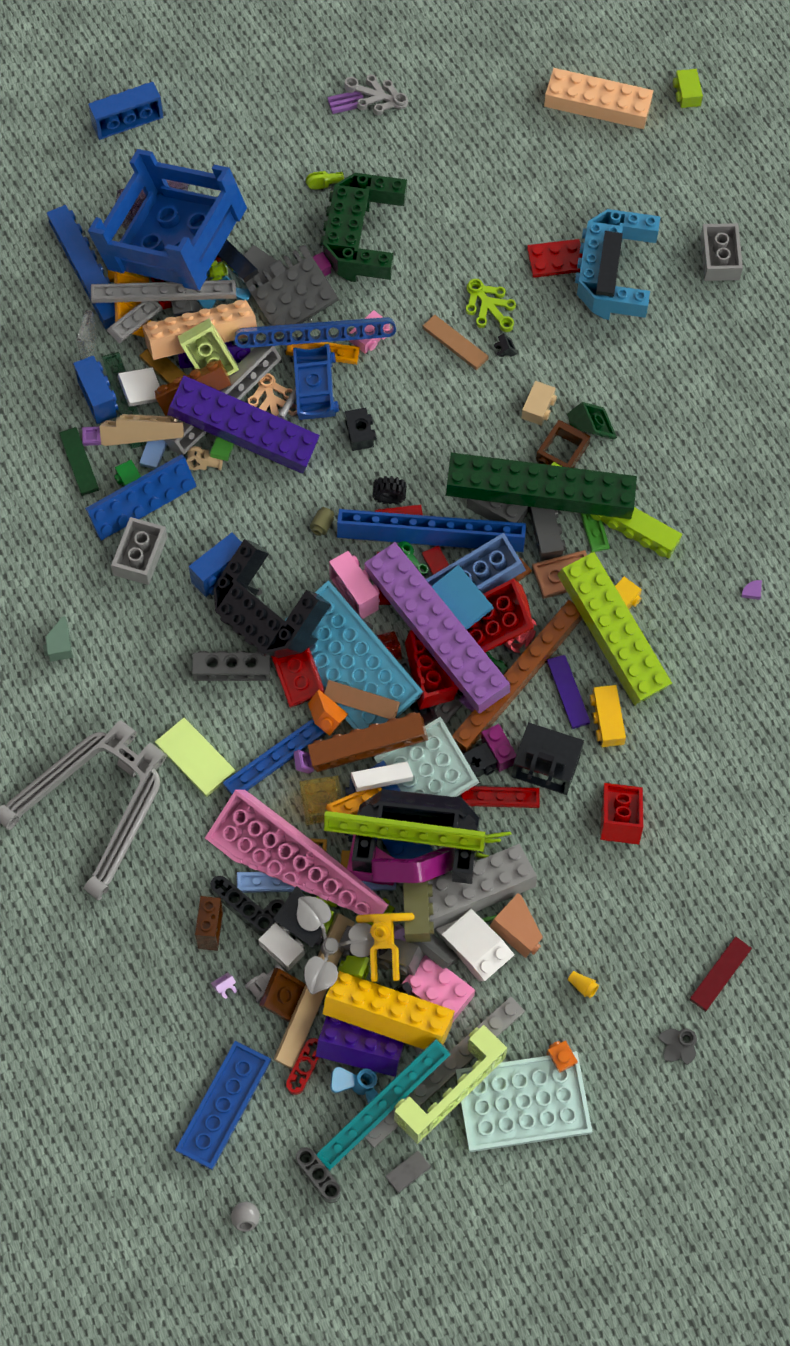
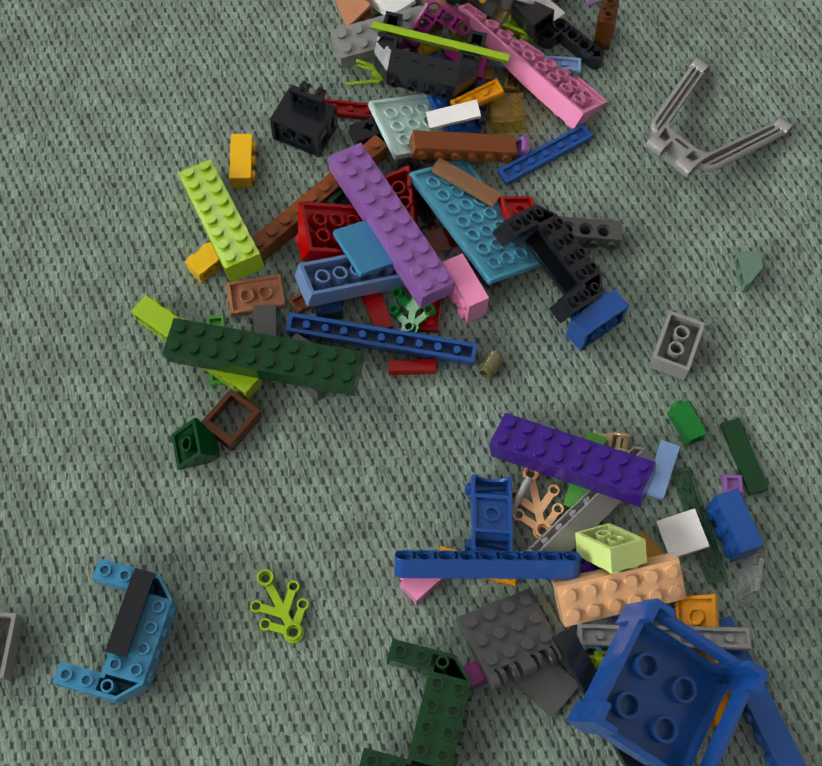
camera: 175 degrees left, 0 degrees up
(134, 320) = (701, 597): light grey tile -> none
(139, 428) = (684, 477): tan wedge -> none
(141, 497) = (680, 396): blue plate -> none
(195, 757) = (617, 163): yellowish green tile -> none
(212, 375) = (625, 515): dark orange brick -> none
(326, 712) = (497, 177): orange slope -> none
(360, 438) = (444, 450): black brick -> none
(389, 490) = (419, 384): black tyre -> none
(455, 342) = (327, 563): medium nougat tile -> none
(499, 746) = (343, 135): magenta brick -> none
(507, 346) = (269, 548): black tile -> none
(538, 403) = (246, 474): tan brick -> none
(554, 258) = (191, 666): red plate -> none
(568, 691) = (273, 186): dark purple tile -> none
(621, 813) = (247, 83): red slope -> none
(752, 590) = (77, 263): medium lavender tile -> none

